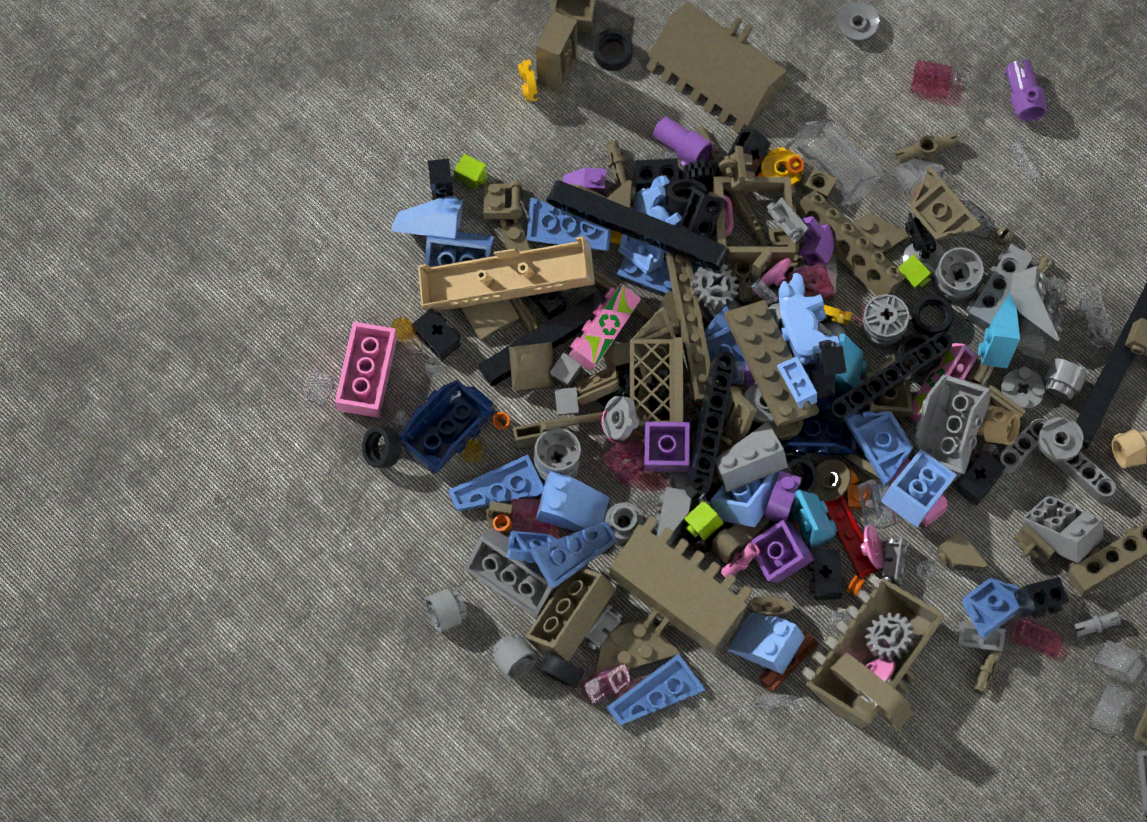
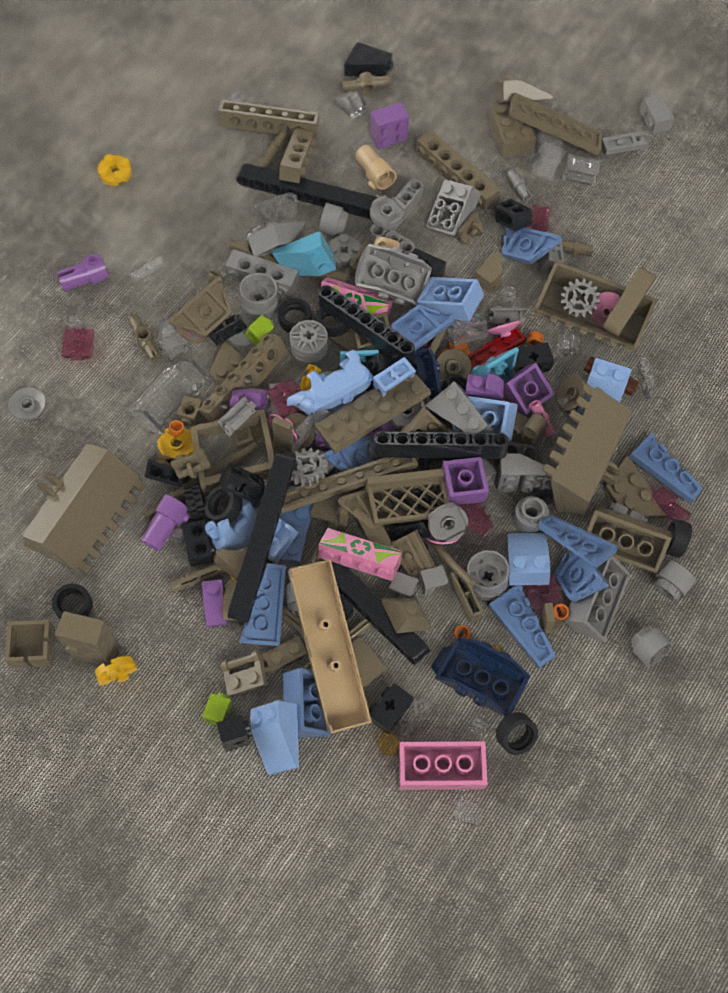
camera: 105 degrees left, 5 degrees down
(703, 521) = (523, 443): lime brick -> none
(829, 358) = (375, 346): black brick -> none

